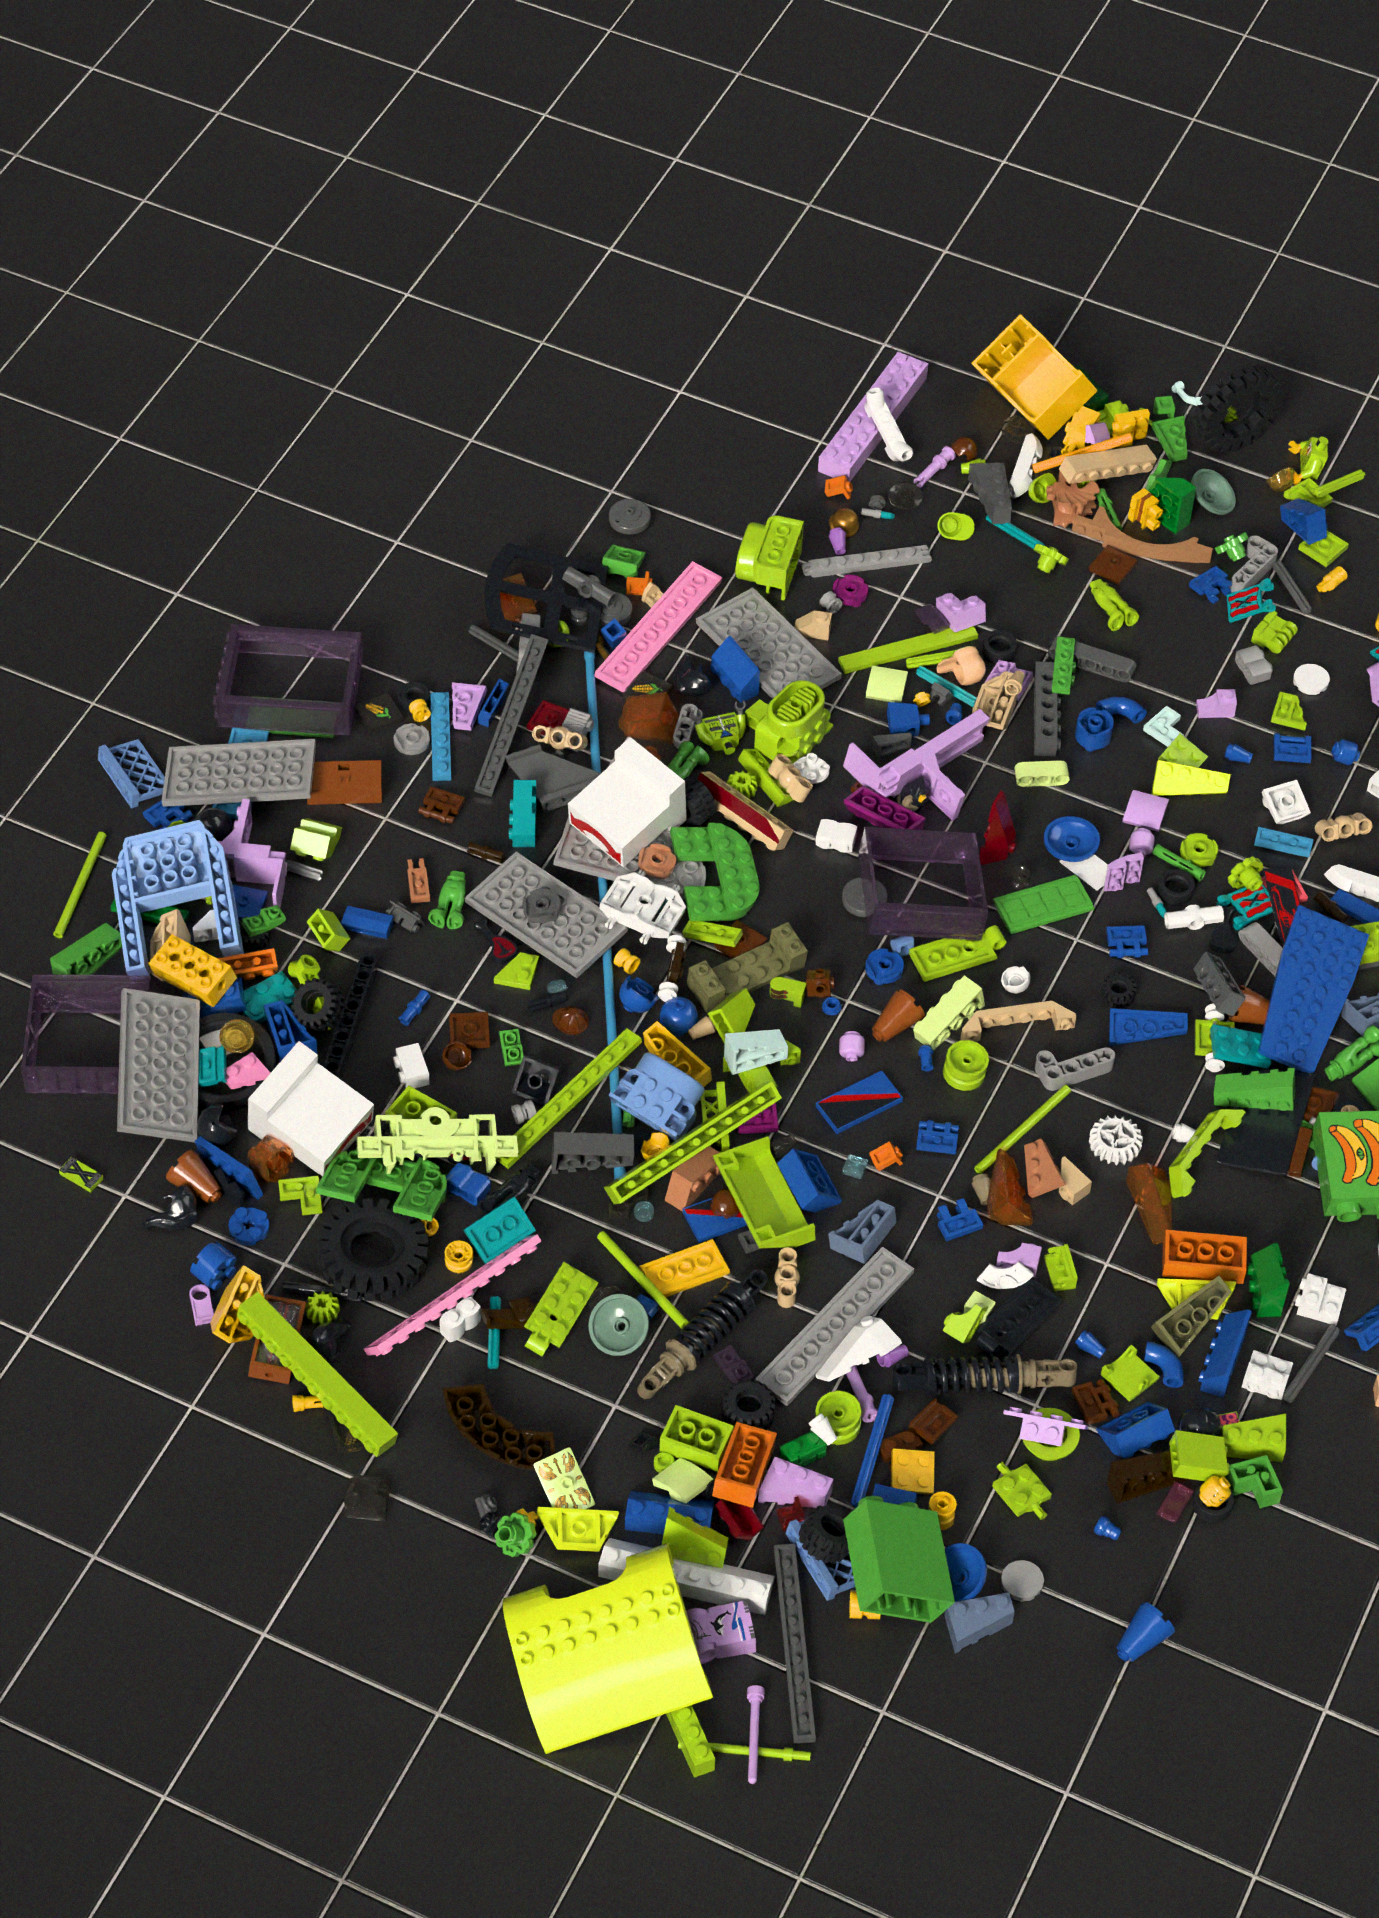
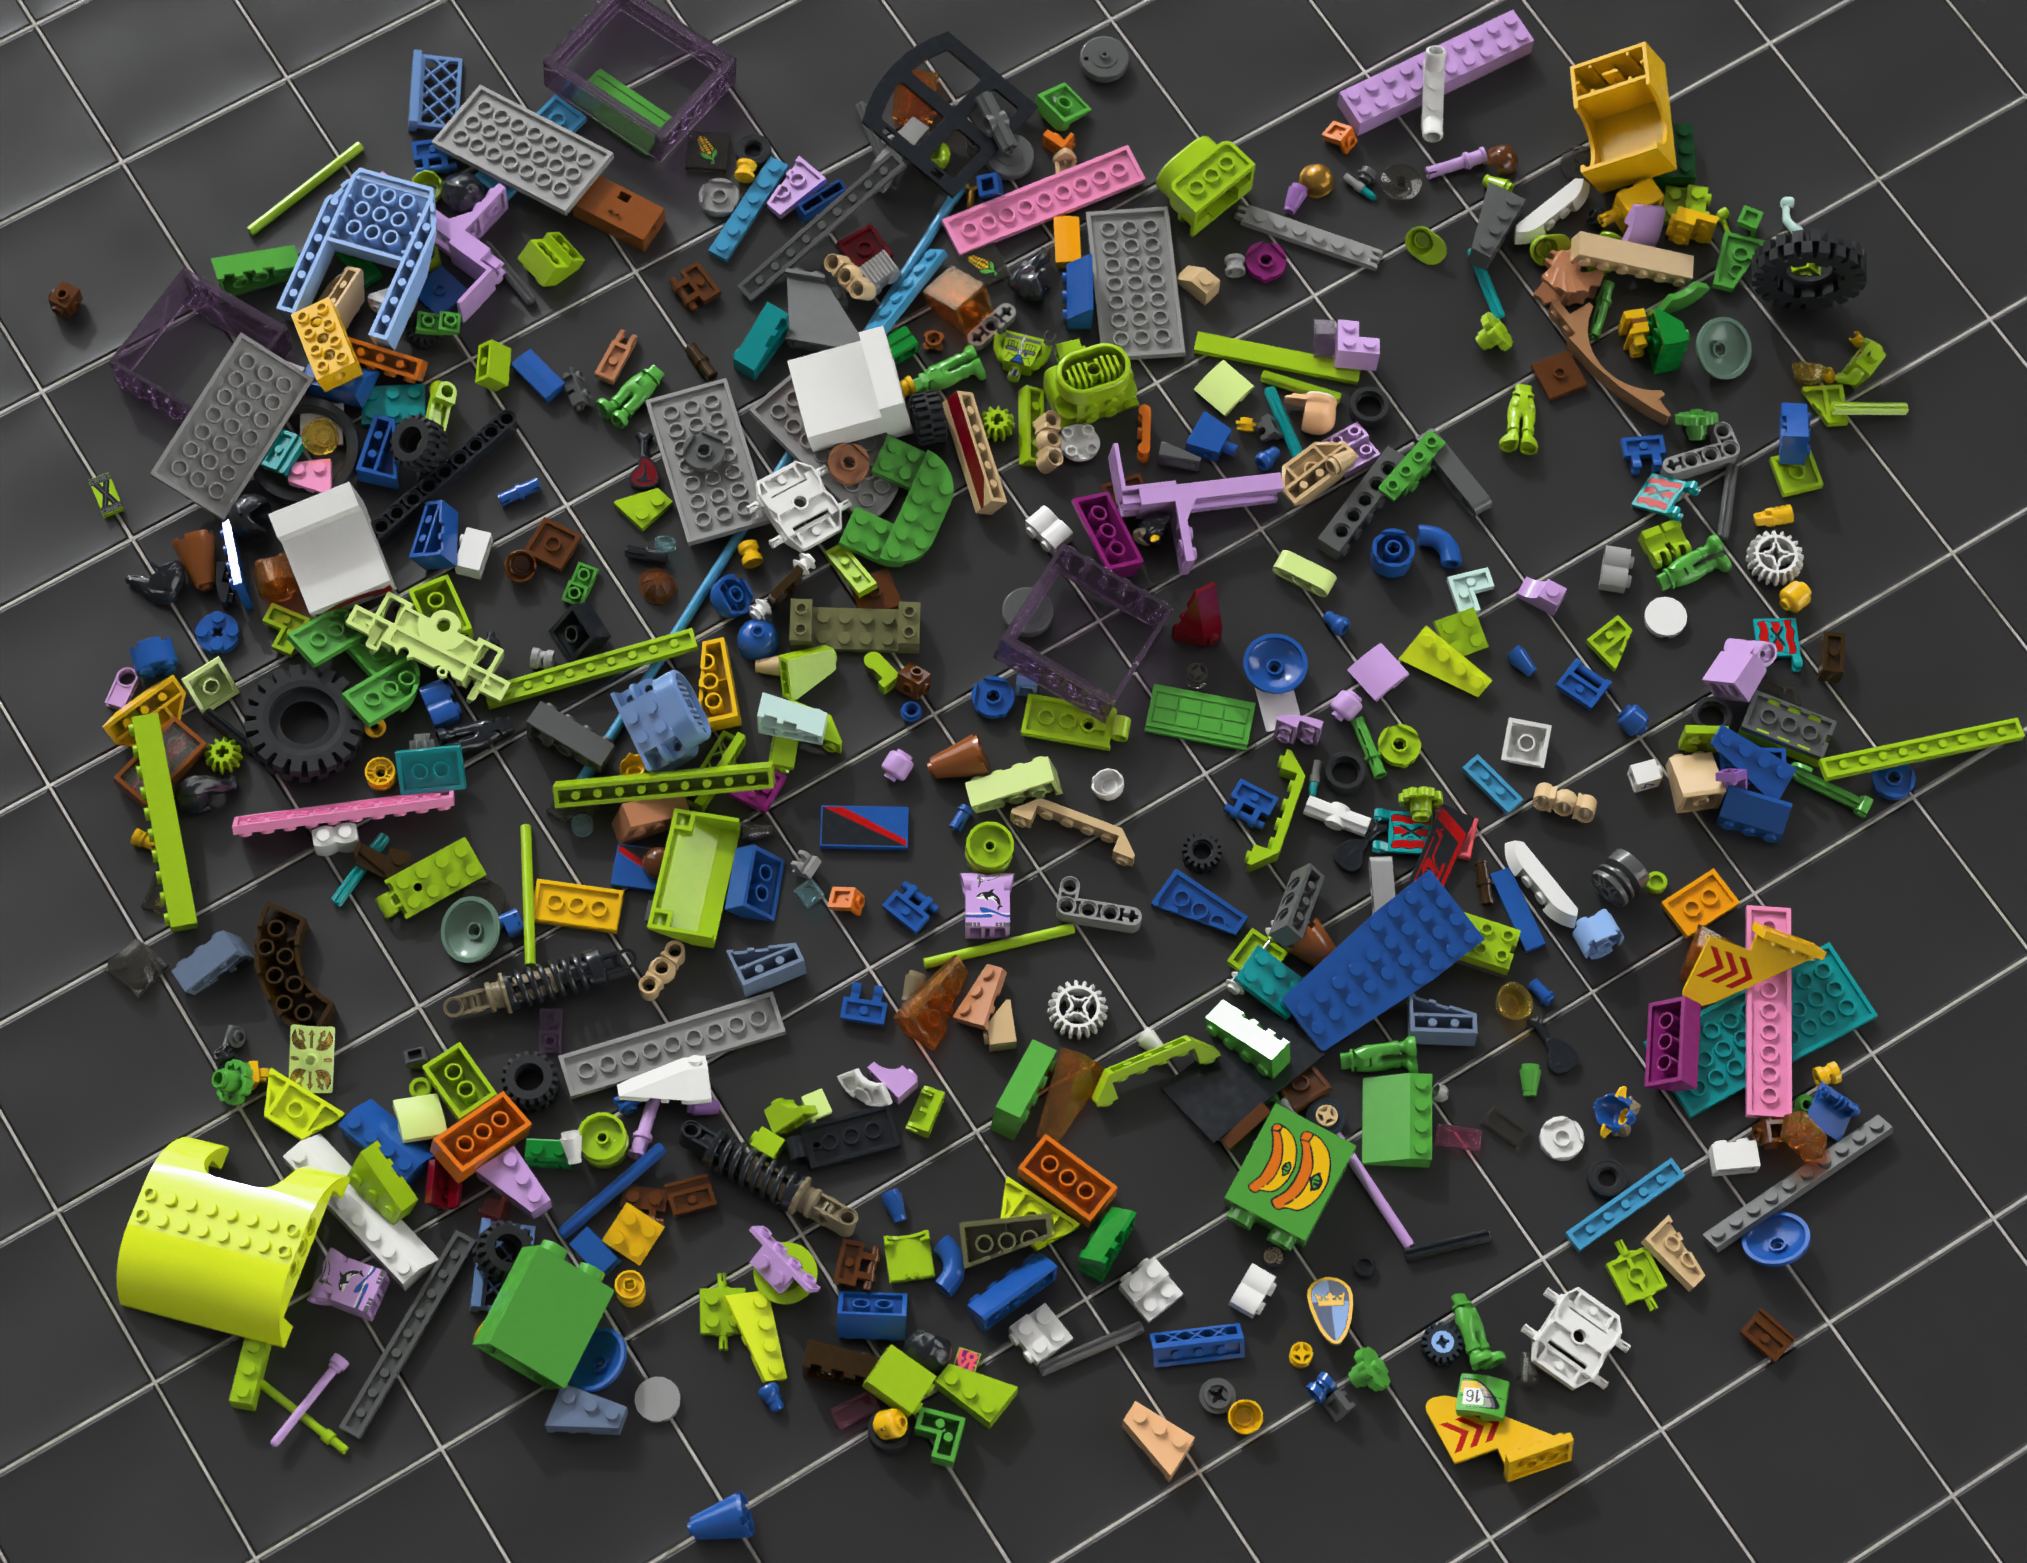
camera: 30 degrees right, 15 degrees up
(274, 1263) = (210, 685): none -> yellowish green slope
(377, 1068) = (436, 537): none -> blue wedge
(428, 1458) = (210, 961): none -> sand blue wedge
(475, 1214) = (422, 741): none -> light grey gear
(606, 730) = (909, 289): none -> dark azure plate
(696, 644) = (1066, 240): none -> light orange piece
(834, 1385) = (625, 1106): none -> blue plate
(838, 1148) = (806, 865): none -> light grey tile
(851, 735) = (1143, 433): none -> orange plate
(962, 1349) = (767, 1143): none -> lime brick
(993, 1105) = (987, 904): none -> lavender piece
(1053, 1479) = (757, 1325): none -> neon yellow wing
(1090, 794) = (1337, 623): none -> blue piece
(1101, 446) = (1613, 232): light orange axle -> none
(1122, 1214) = (1023, 1089): none -> bright green wedge
(1139, 903) = (1263, 856): none -> lime slope
(1299, 642) = (1682, 571): none -> bright green piece
(1353, 609) = (1783, 551): none -> white gear

